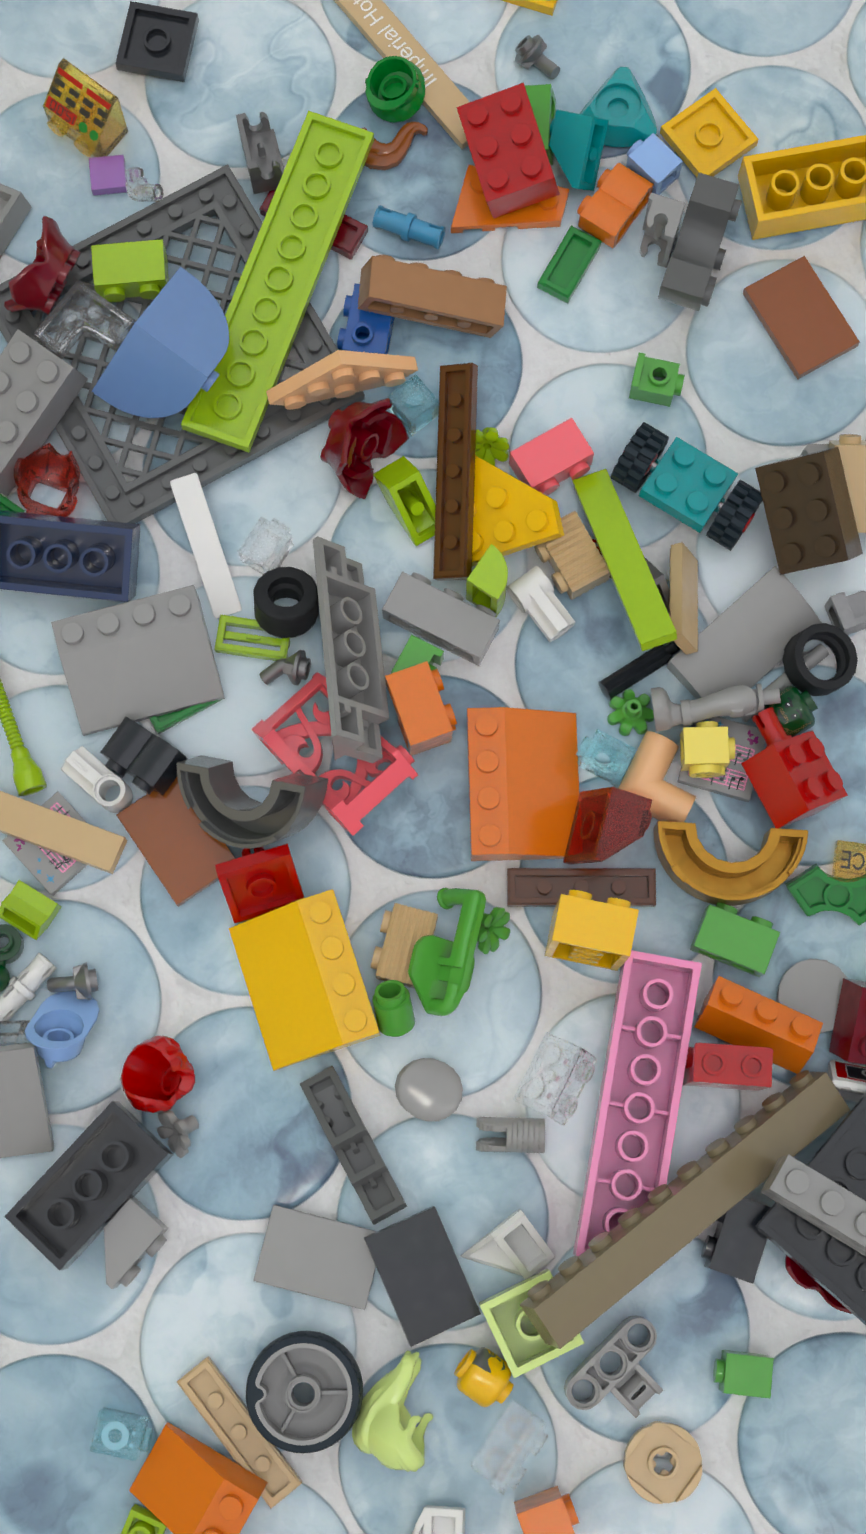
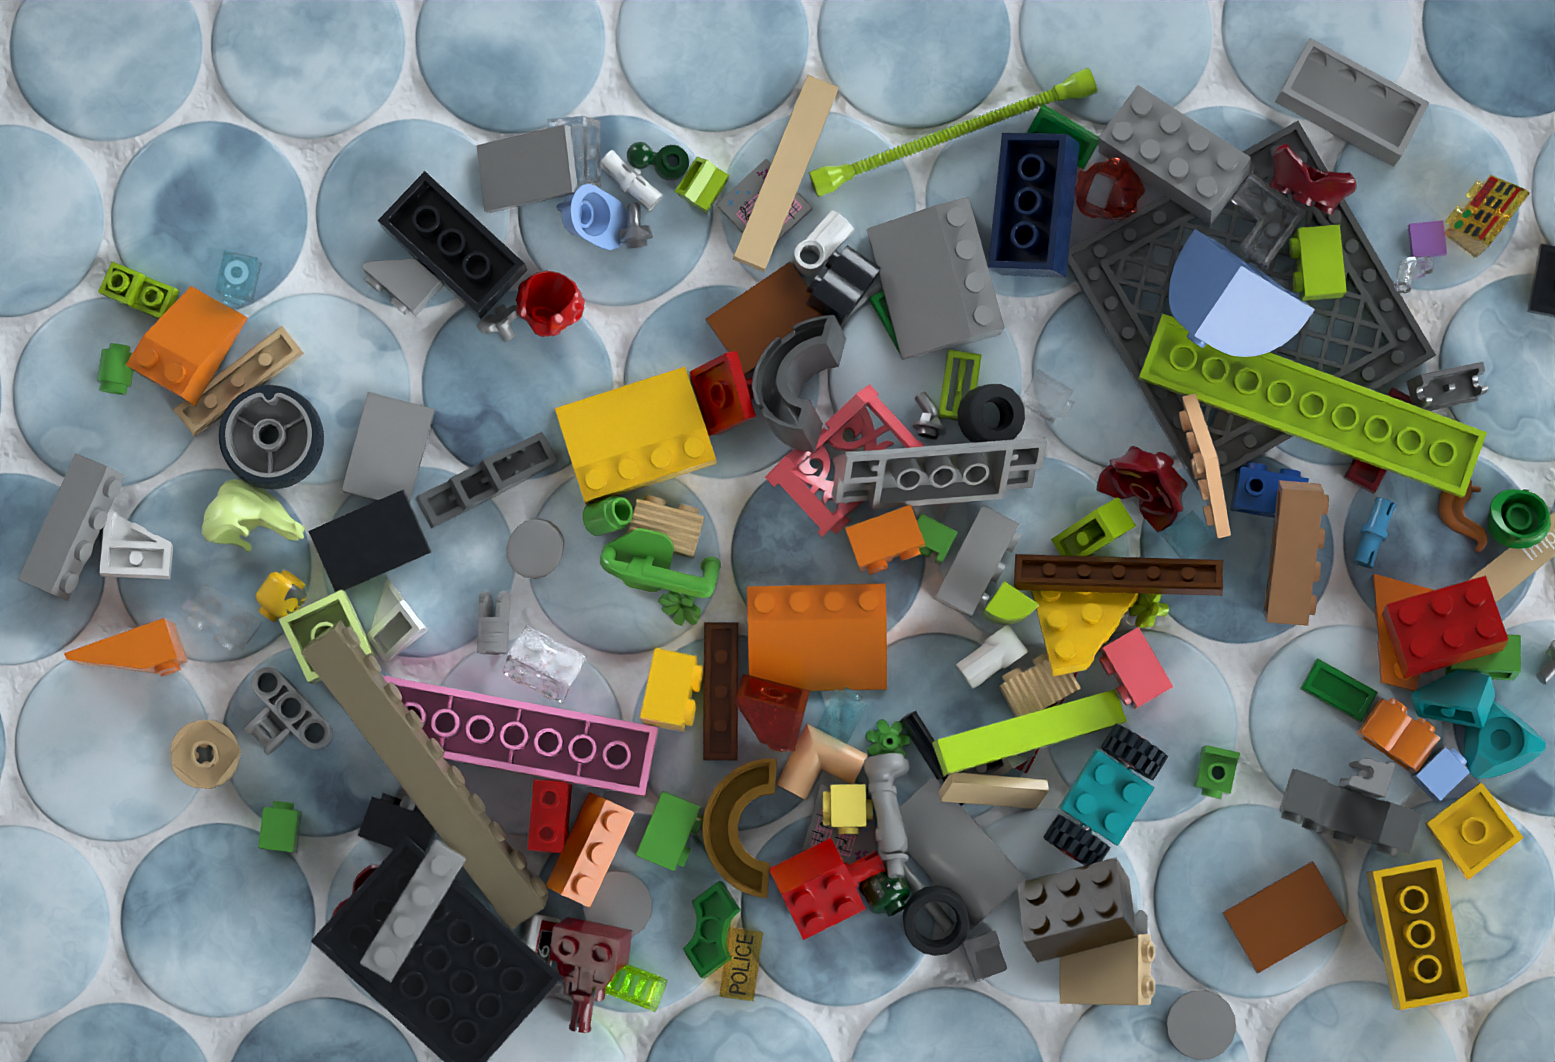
camera: 85 degrees right, 5 degrees up
(205, 545) = (1049, 339): white sticker -> none

